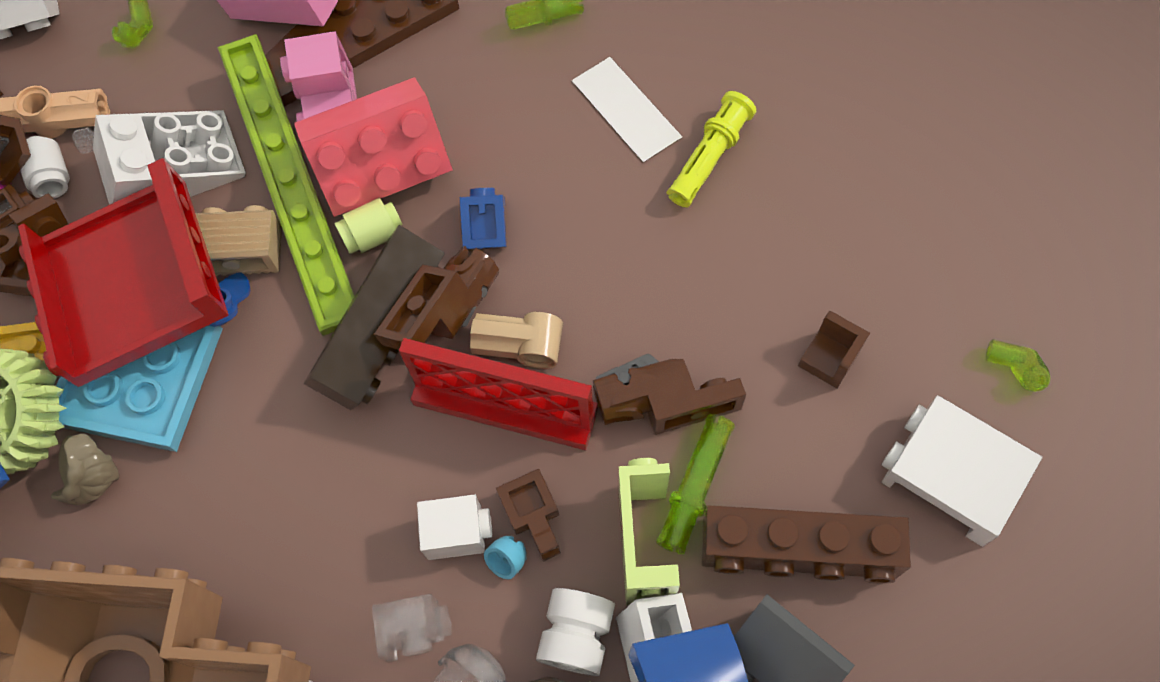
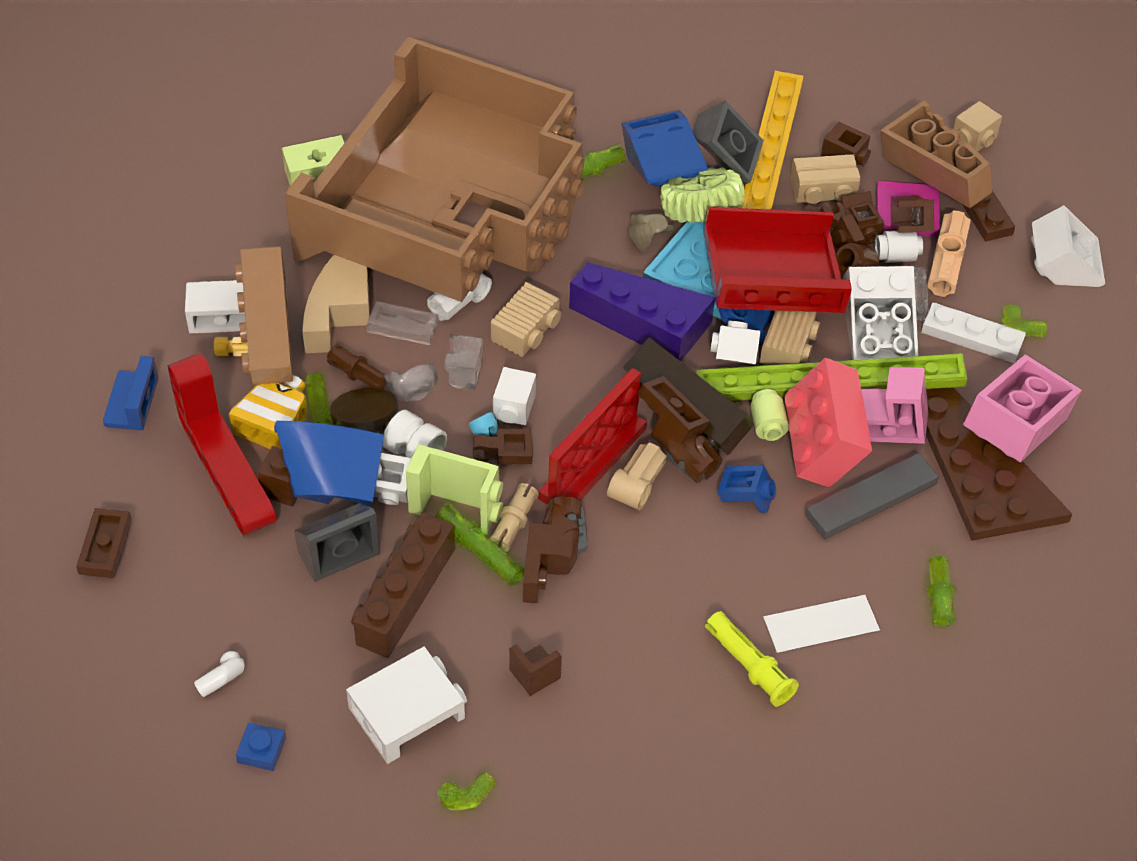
camera: 105 degrees right, 15 degrees down
(94, 197) = (856, 256): none -> reddish brown brick
(162, 64) = (973, 332): none -> white plate
(239, 425) = (642, 308): none -> dark purple wedge
(270, 288) = (736, 343): none -> white brick
(302, 571) = (525, 319): none -> tan brick
(451, 107) = (871, 496): none -> dark grey tile
(612, 455) = (514, 516): none -> tan pin
(1097, 623) = (260, 746): none -> blue plate

